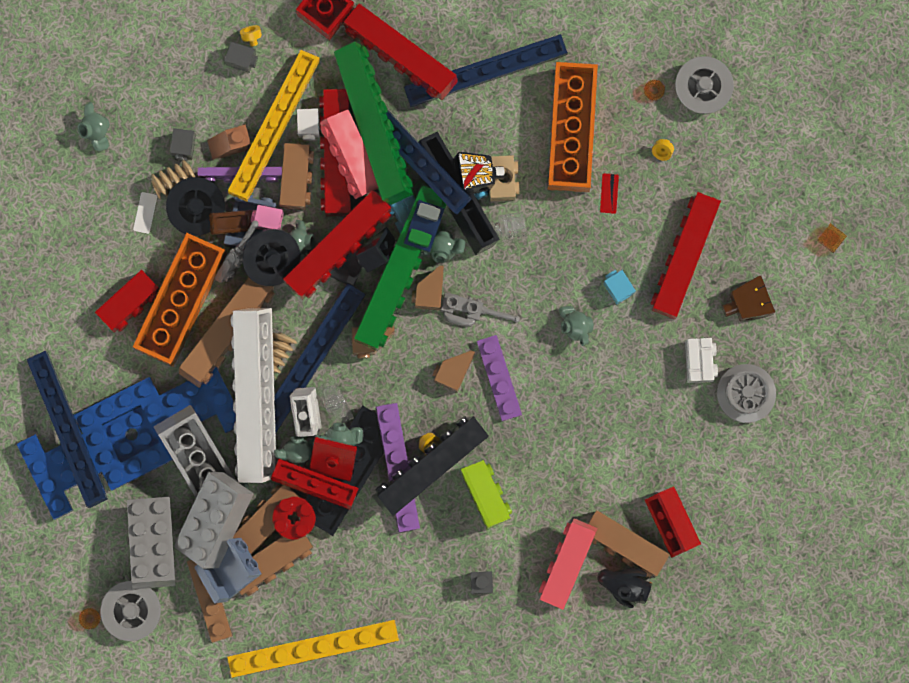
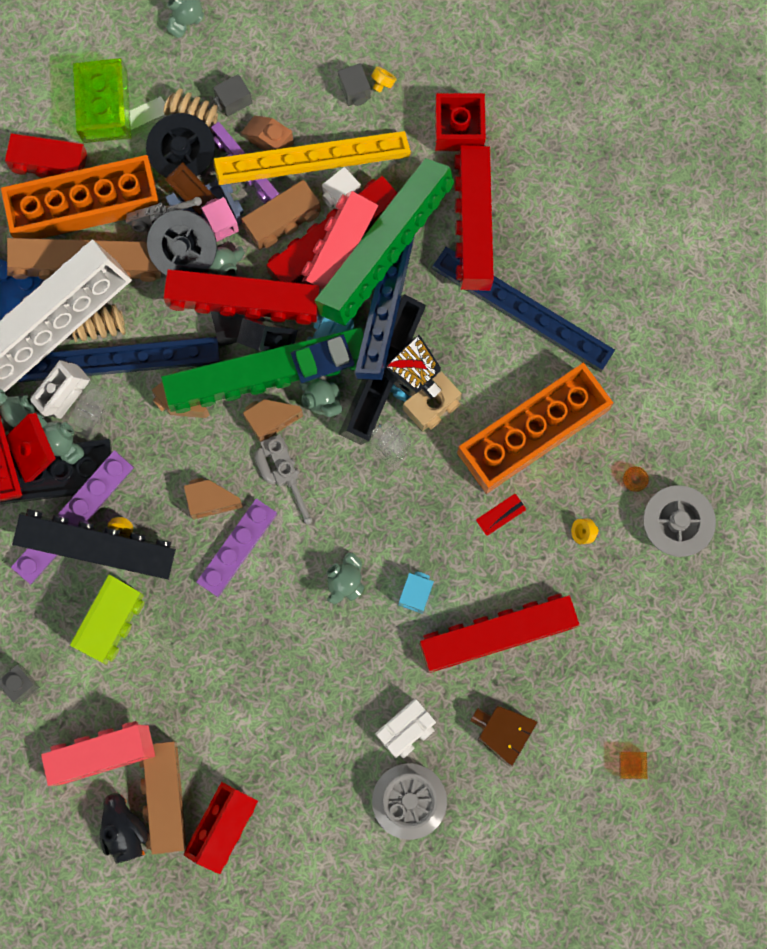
camera: 50 degrees right, 5 degrees down
(118, 233) = (102, 100): none -> clear neon green brick

